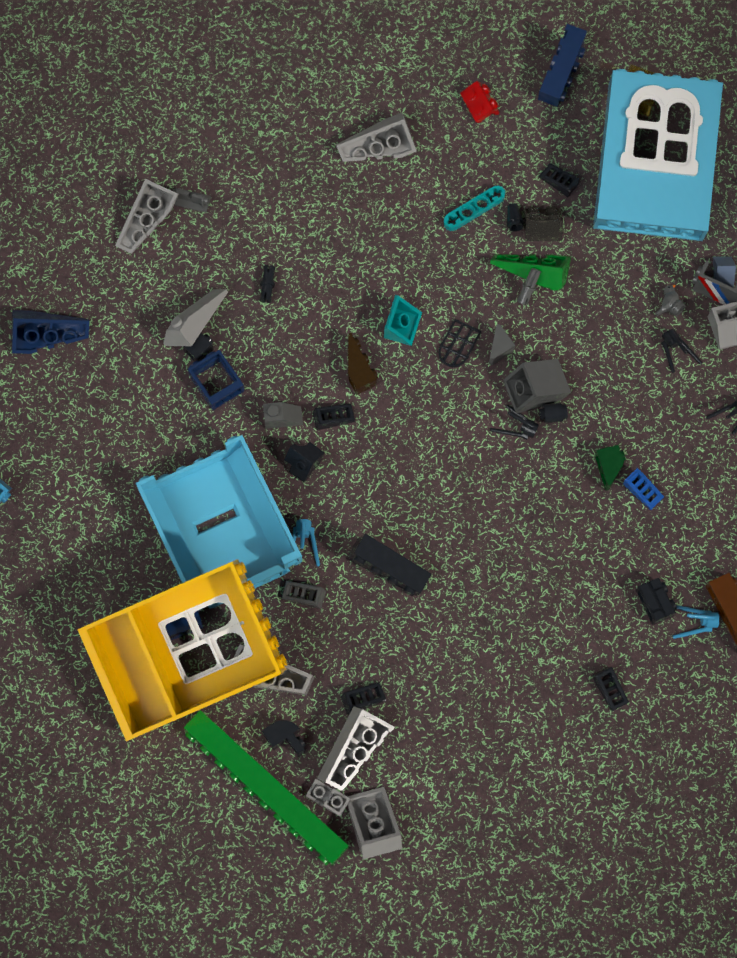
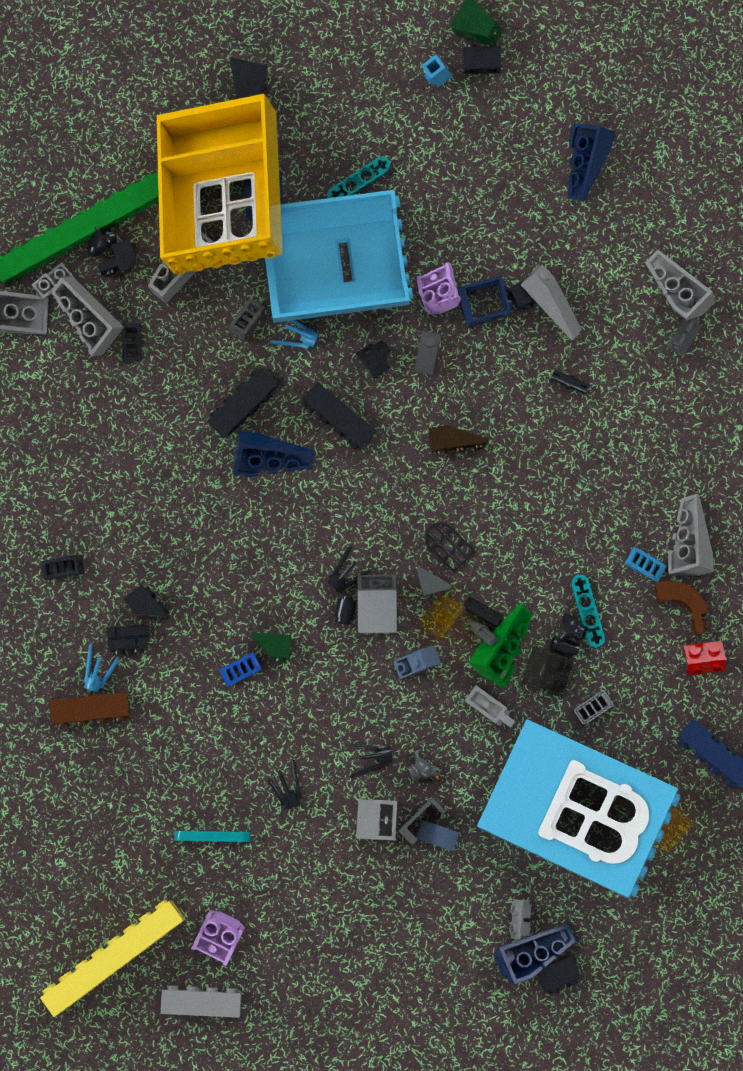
camera: 110 degrees right, 10 degrees up
(64, 666) = (248, 77): none -> black slope
(130, 533) = (356, 178): none -> teal beam
(217, 422) = (438, 290): none -> lavender slope
(272, 761) = (101, 241): none -> black animal
(319, 424) = (404, 417): black slope -> none
(371, 476) = (339, 416): none -> black brick
(402, 322) = (486, 497): teal slope -> none
(411, 185) = (642, 554): none -> dark azure slope
(430, 535) = (264, 453): none -> dark blue wedge
(438, 119) = (687, 596): none -> reddish brown arch
(495, 214) = (572, 628): none -> black animal
(508, 294) = (482, 611): none -> black slope
(527, 325) = (441, 616): none -> clear yellow slope
(577, 335) = (417, 662): none -> sand blue slope
(592, 263) = (489, 707): none -> light grey hinge
(619, 593) = (144, 605): none -> black slope

